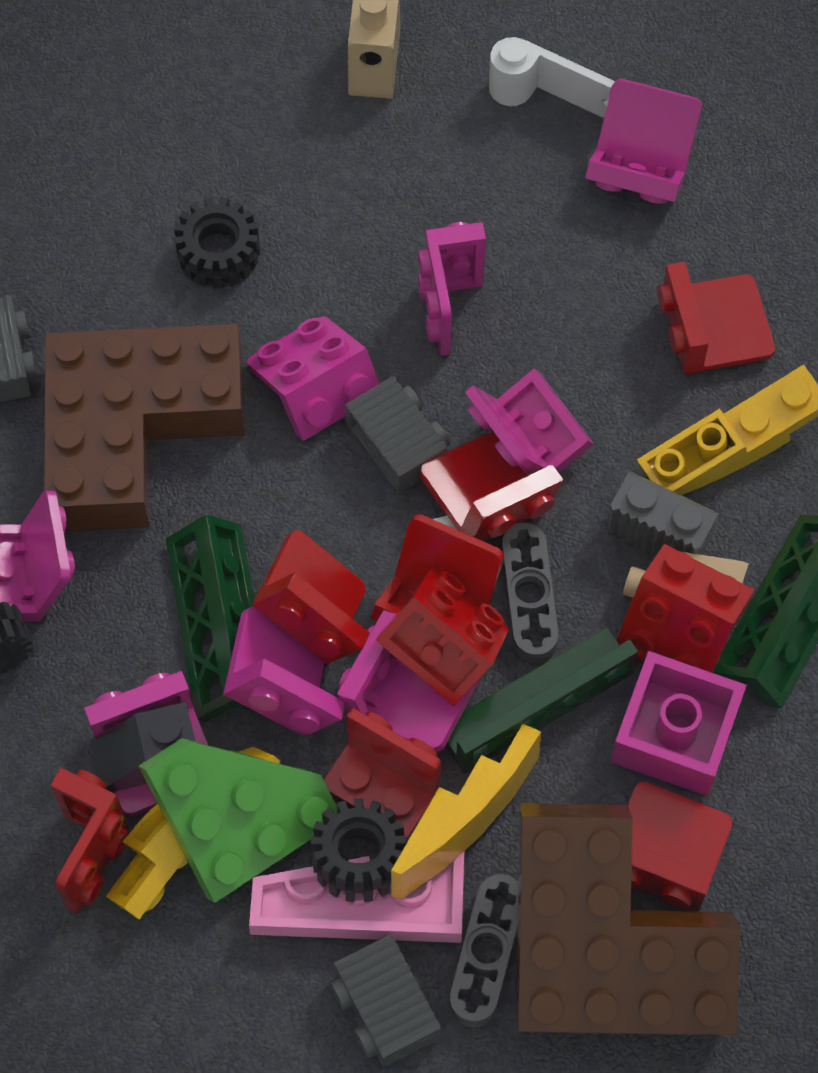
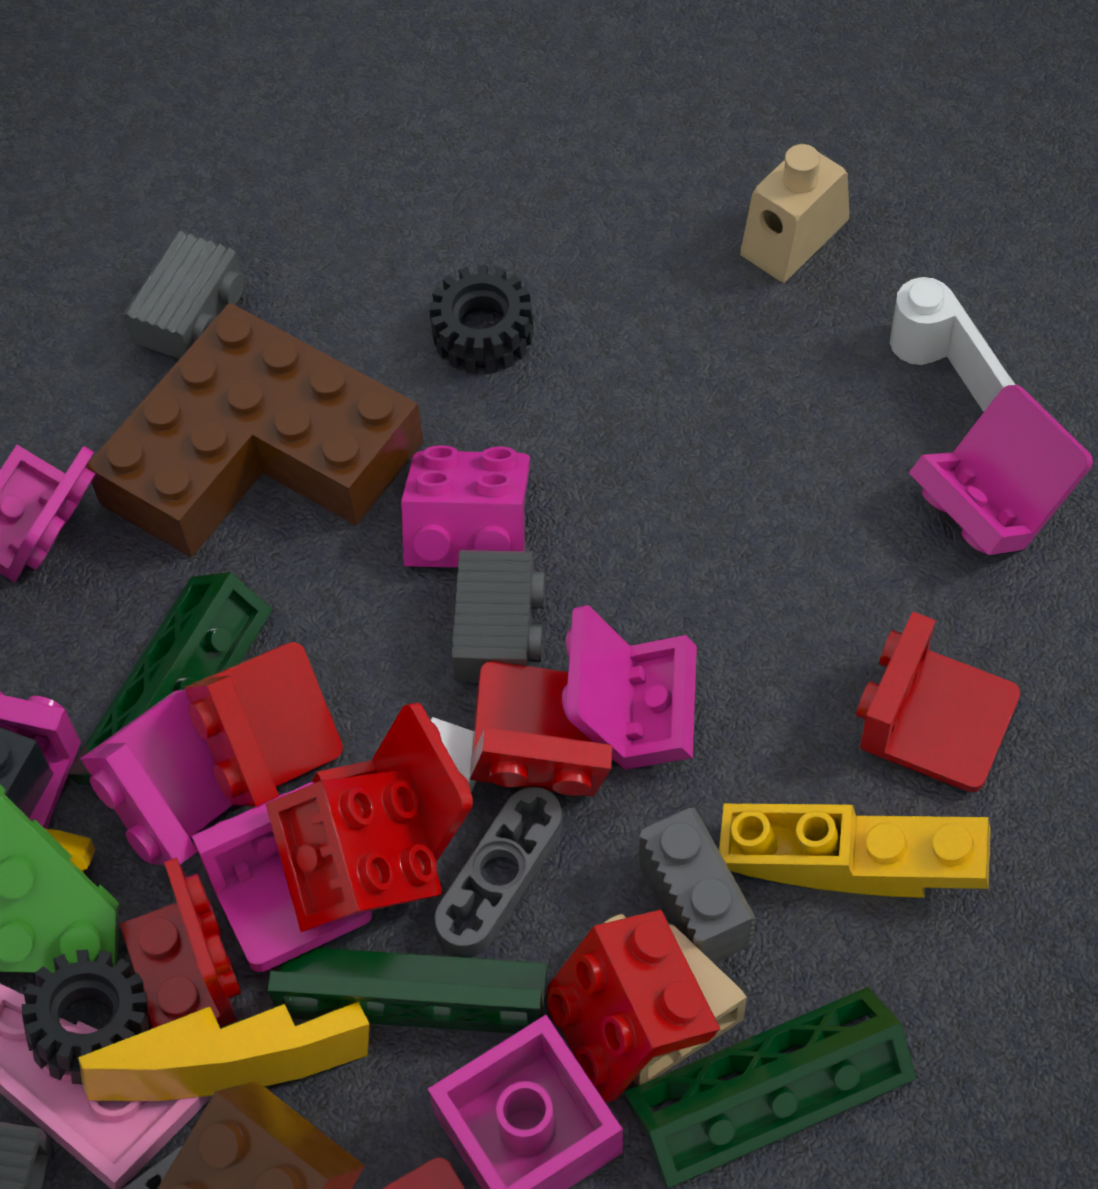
camera: 40 degrees right, 5 degrees down
(449, 263) = (676, 467): dark pink bracket -> none

